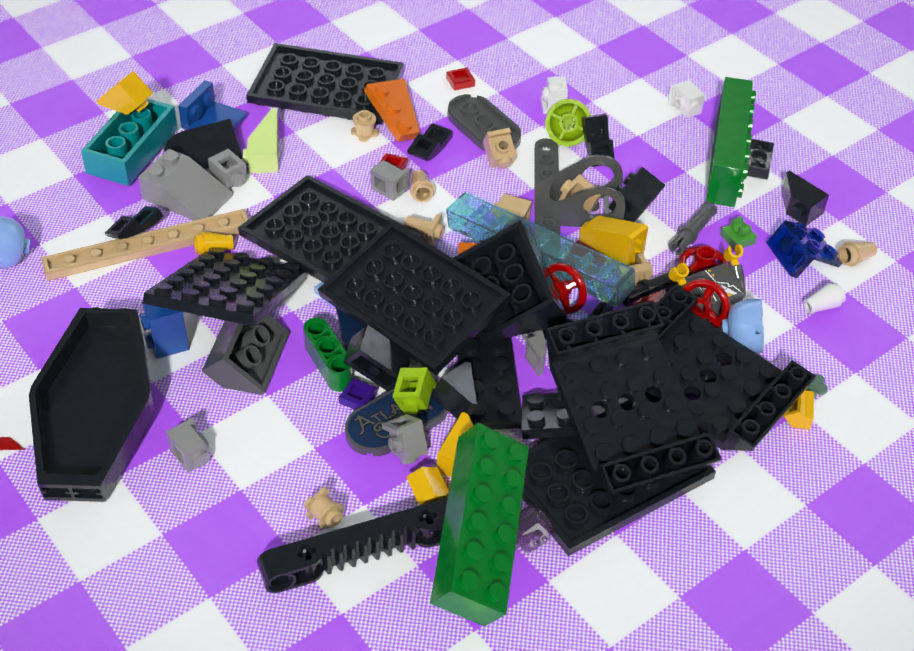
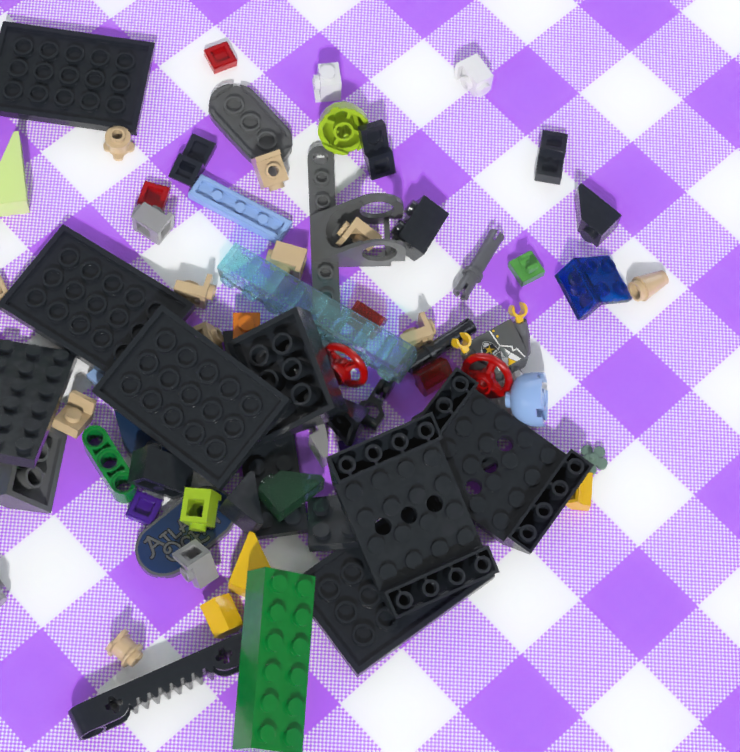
camera: 10 degrees left, 20 degrees up
(303, 308) = (75, 415): none -> tan bracket
(395, 108) = (150, 116): orange wing -> none
(421, 187) = (187, 228): tan cone -> none
(468, 177) = (239, 209): none -> light blue tile
(505, 380) = (288, 491): none -> clear green slope
(532, 529) = (323, 656): clear purple head -> none
(615, 238) = (394, 295): yellow slope -> none
(704, 258) = (490, 299): red piece -> none
(731, 142) = (521, 144): green brick -> none
(826, 298) = (610, 351): white cone -> none

